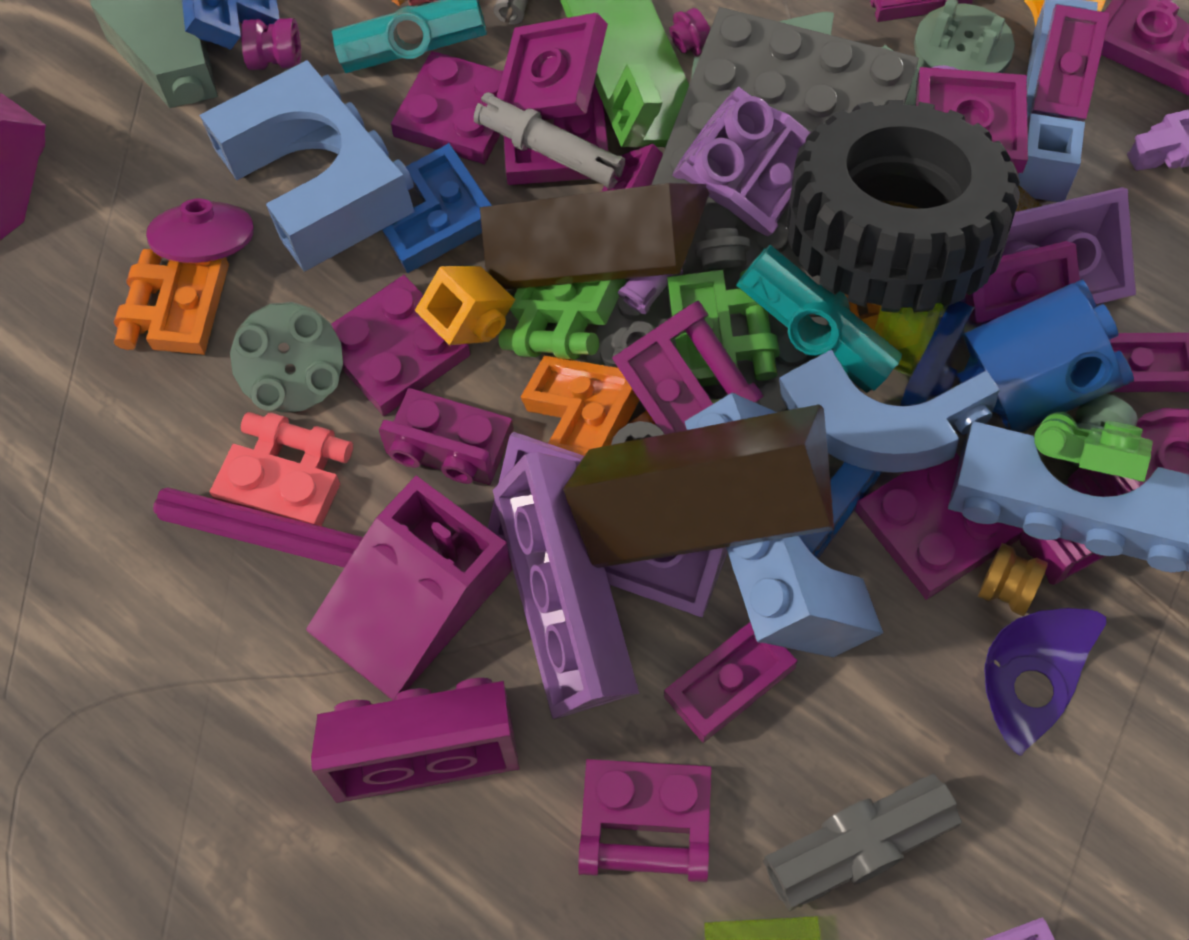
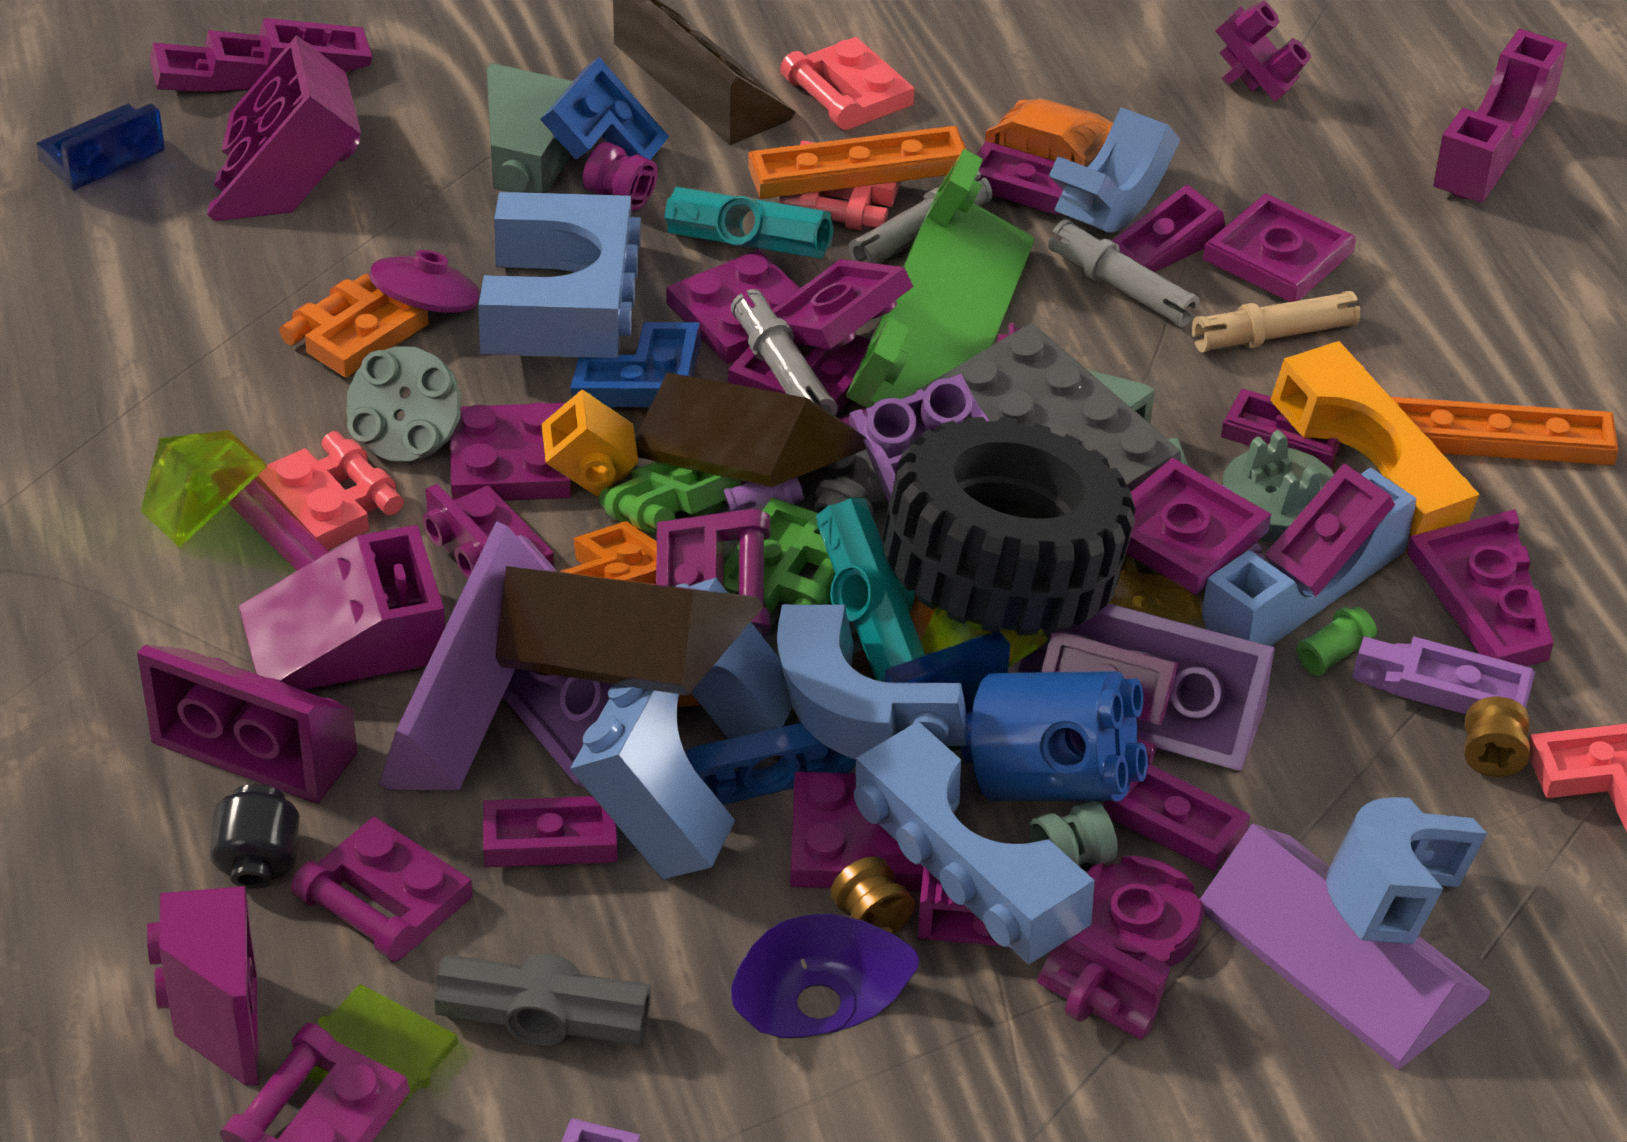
camera: 30 degrees right, 20 degrees down
(177, 534) = (195, 480): none -> clear neon green slope
(515, 849) = (254, 835): none -> black head
(1109, 450) = (1015, 800): bright green plate -> none
(1111, 140) = (1336, 640): none -> bright green pin

